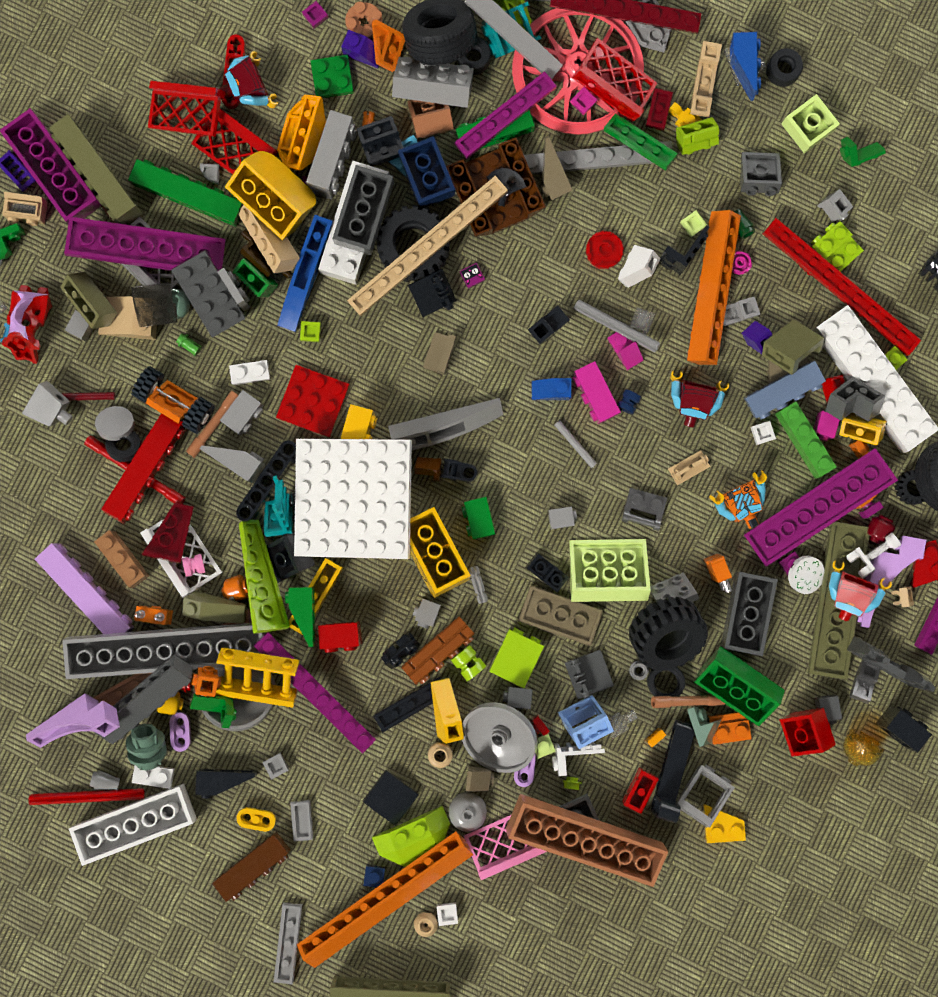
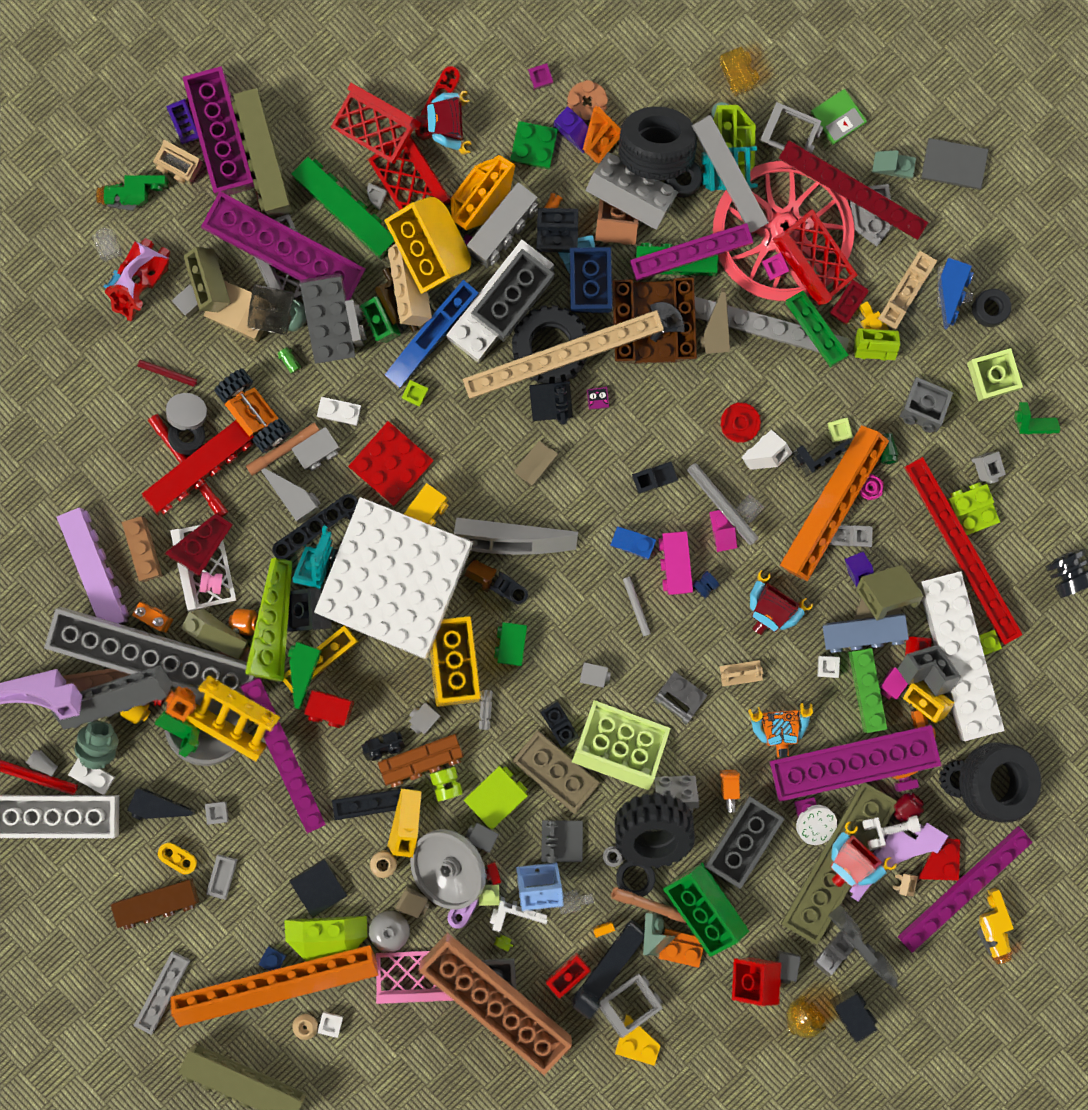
camera: 20 degrees right, 0 degrees up
(48, 405) = (126, 369): light grey torso -> none
(180, 731) = (135, 742): lavender plate -> none

